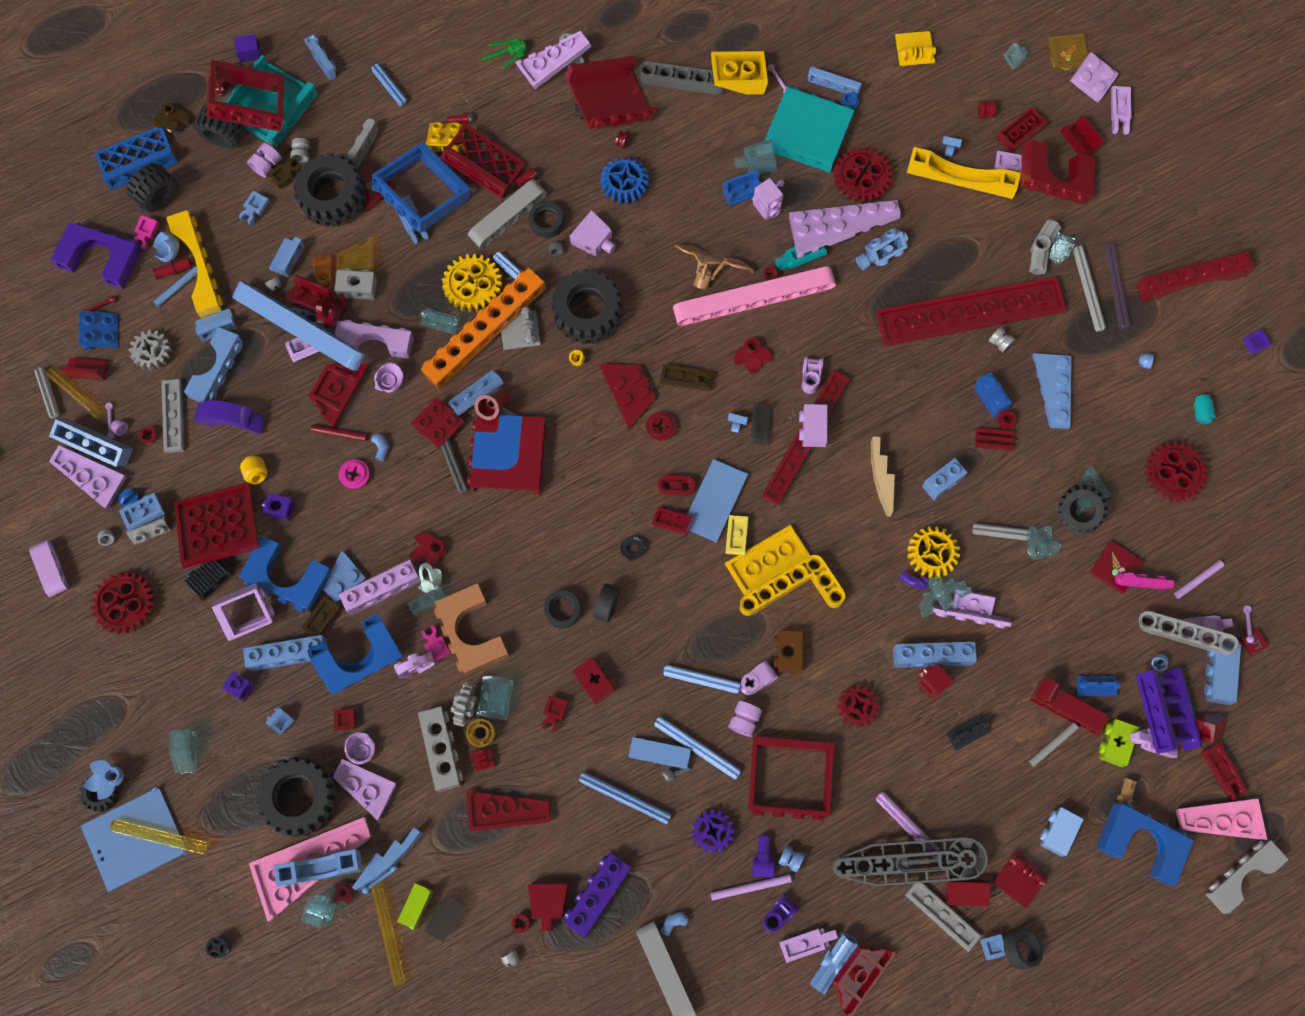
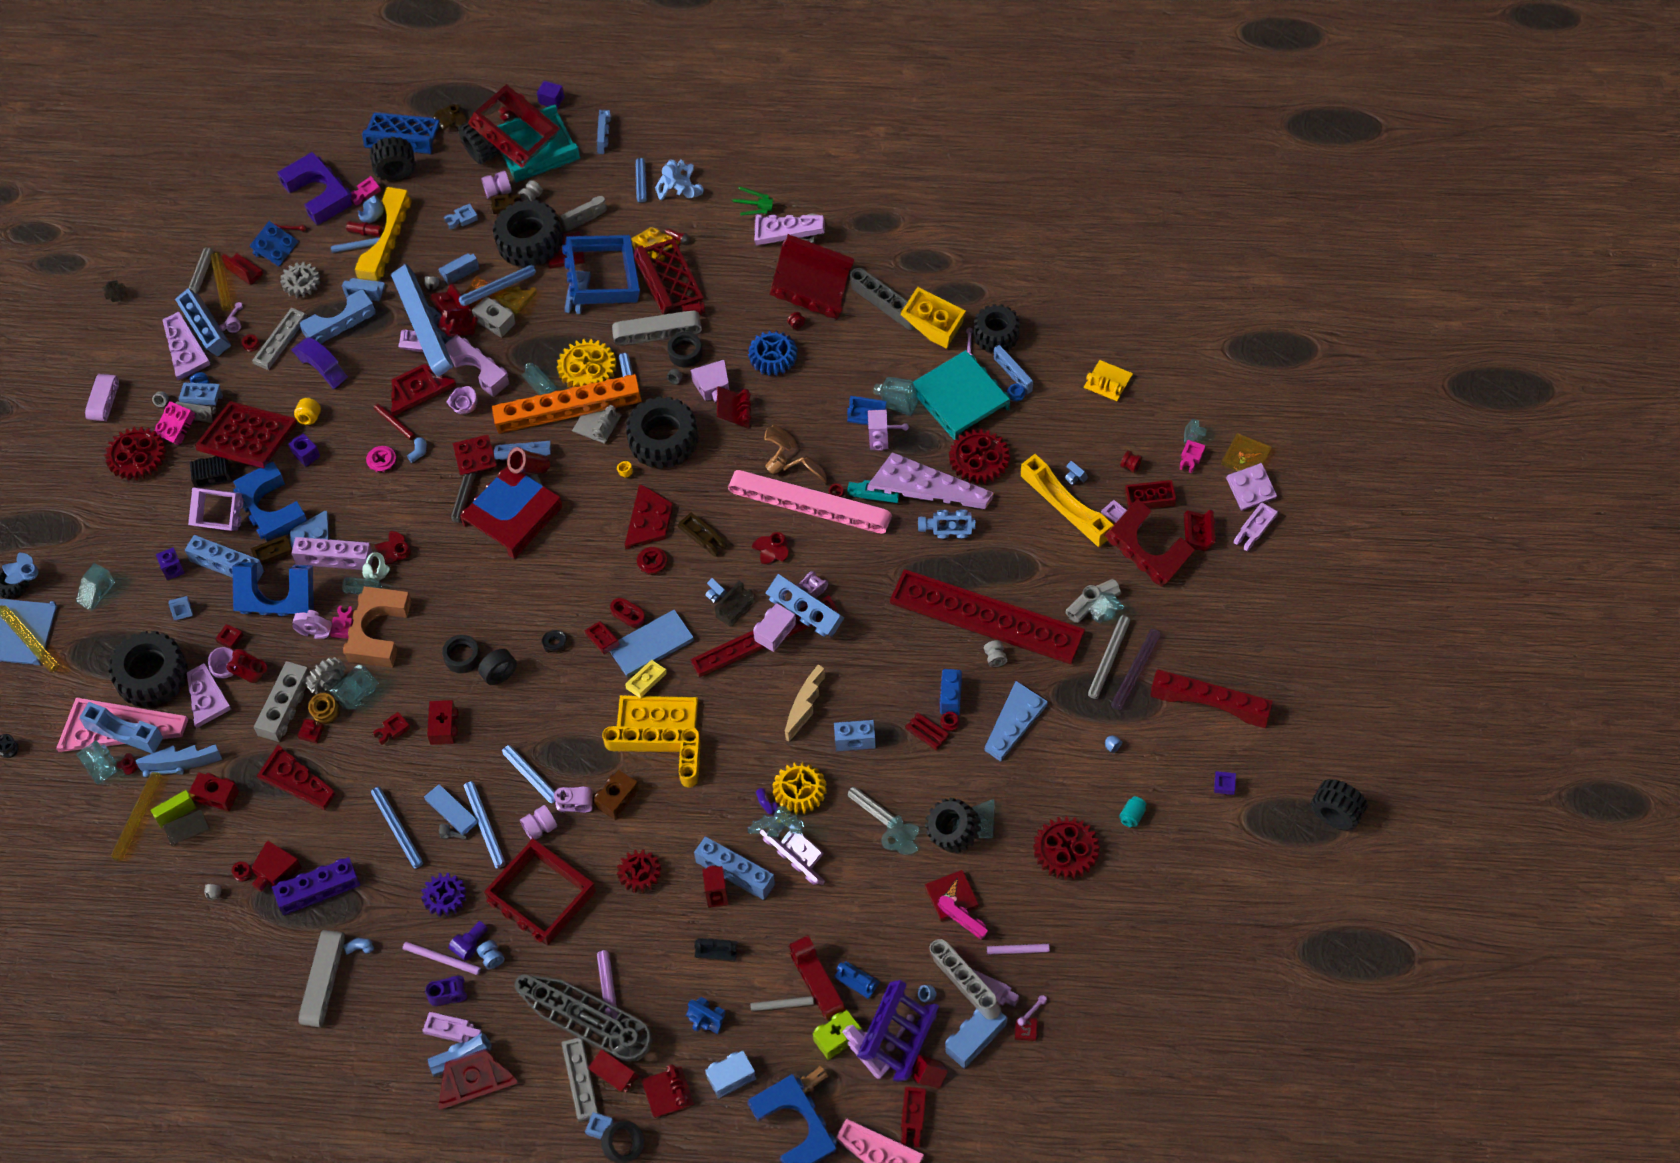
camera: 35 degrees right, 15 degrees down
(137, 553) = (173, 421): none -> dark pink hinge
(339, 254) = (497, 285): none -> medium blue axle
(382, 740) = (247, 667): none -> dark red piece
(424, 68) = (673, 179): none -> light blue piece
(454, 870) = (221, 799): none -> dark red brick
(630, 247) = (734, 406): none -> dark red hinge
(799, 41) = (996, 317): none -> black tyre
(857, 392) = (782, 586): none -> medium blue brick
(1004, 798) = (704, 1017): none -> blue hips
(1028, 74) = (1191, 454): none -> dark pink plate

